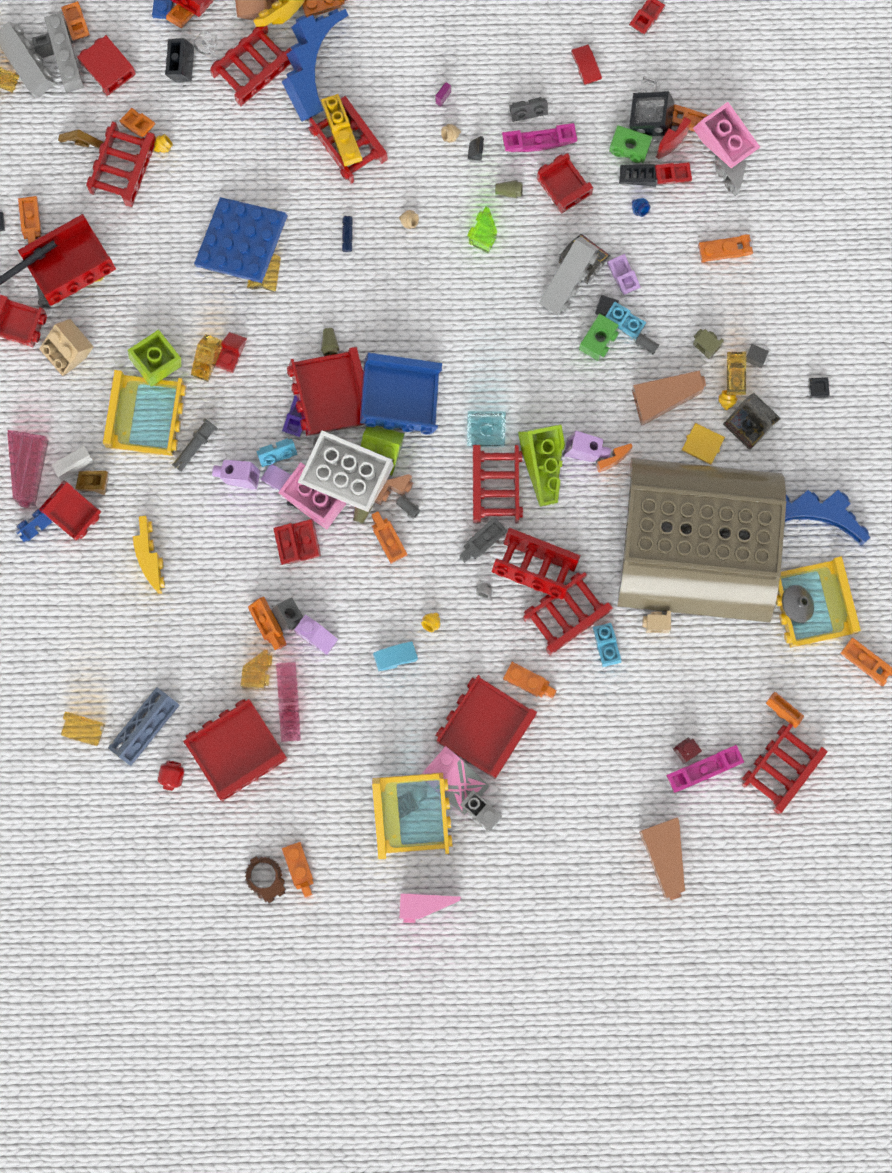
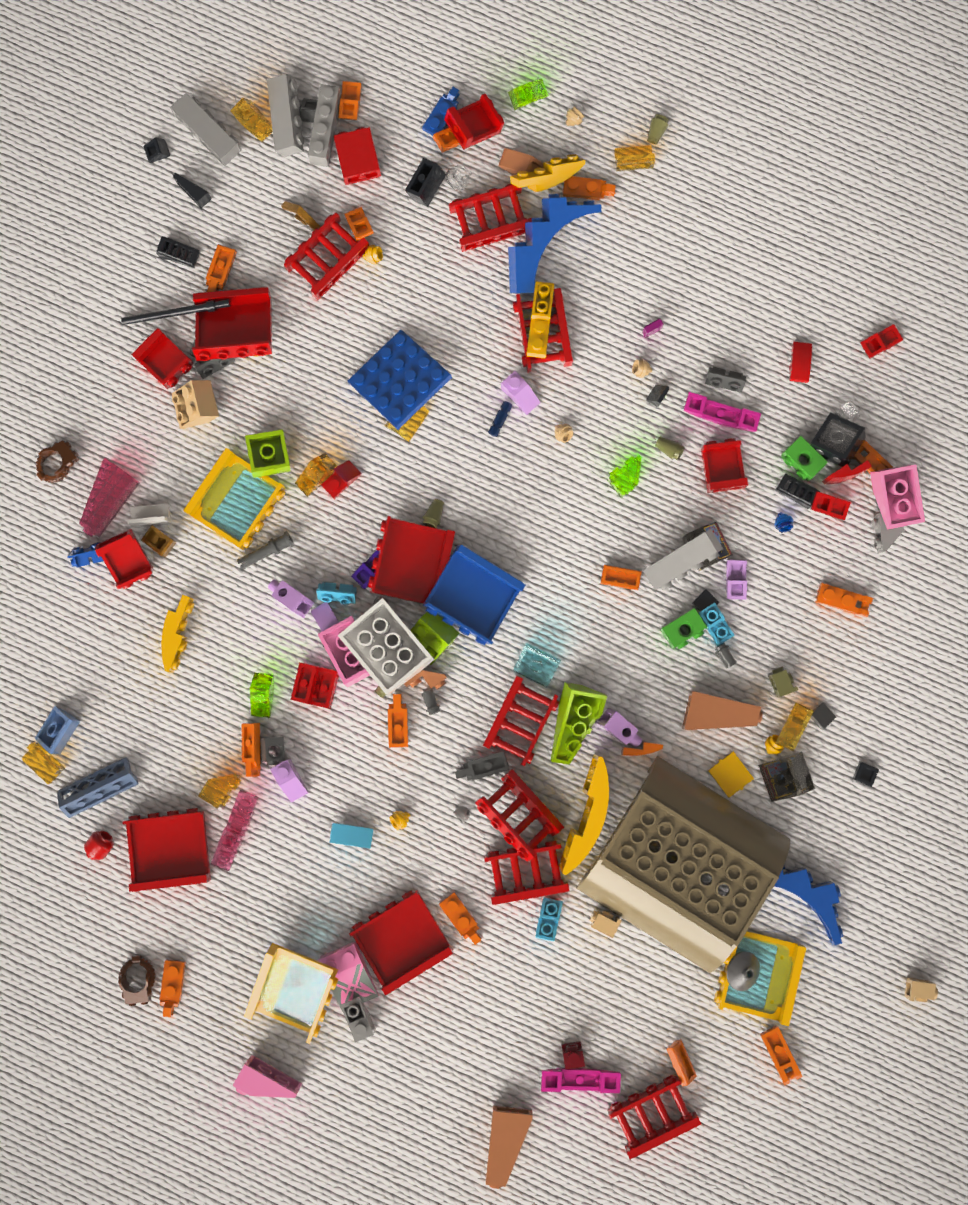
camera: 35 degrees right, 5 degrees up
(63, 308) = (207, 368): none -> dark grey hinge
(81, 692) = (57, 730): none -> medium blue slope
(253, 572) = (261, 694): none -> clear neon green slope
(353, 202) = (520, 392): none -> lavender slope
(522, 320) = (620, 577): none -> orange plate
(595, 509) = (582, 840): none -> yellow slope

